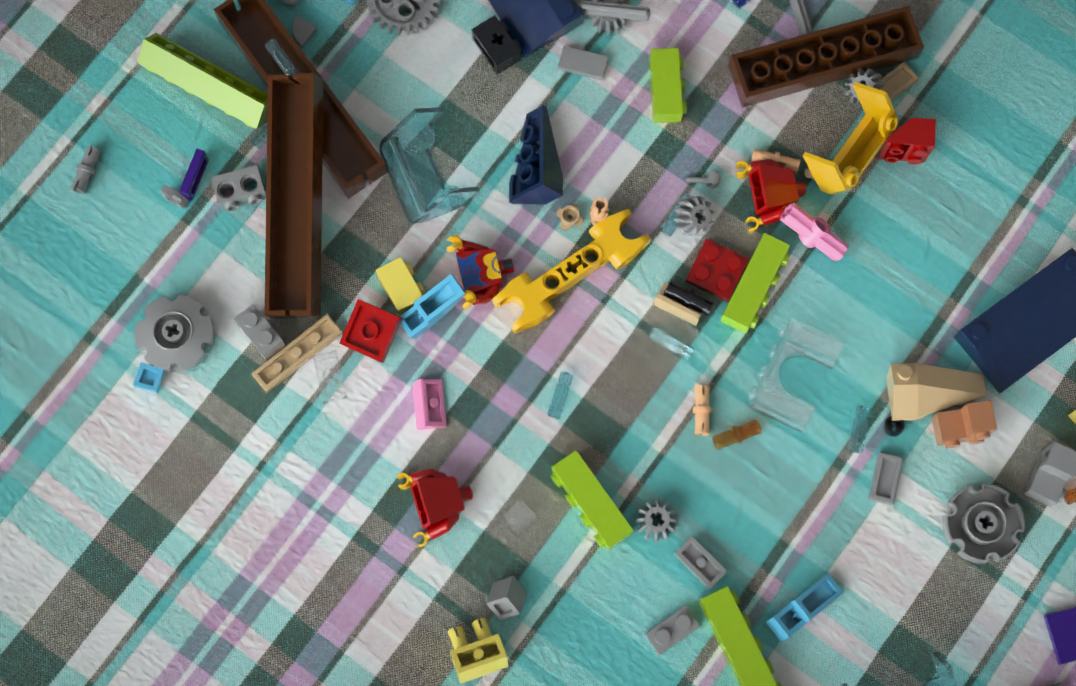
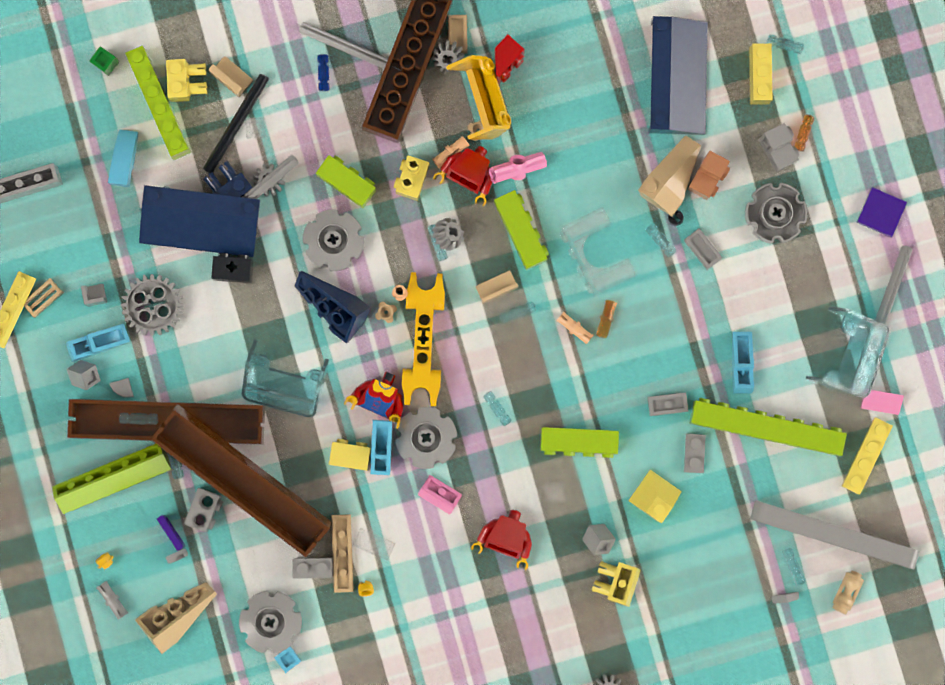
camera: 55 degrees left, 10 degrees up
(100, 237) = (169, 622): none -> tan wedge
(120, 135) = (104, 561): none -> yellow plate
(277, 401) = (365, 589): none -> yellow hinge
(370, 331) = (365, 496): red plate -> none
(458, 342) = (425, 422): none -> light grey piece
(582, 62) = (287, 222): light grey tile -> none
(596, 623) = (655, 496): none -> light yellow slope
(604, 131) = (323, 252): none -> light grey piece
(665, 520) = (619, 417): light grey gear -> none
(688, 298) = (499, 281): black pin -> none
(711, 181) = (432, 202): light grey hand -> none
(717, 270) = (492, 246): red plate -> none
(720, 142) = (411, 178): none -> light yellow brick

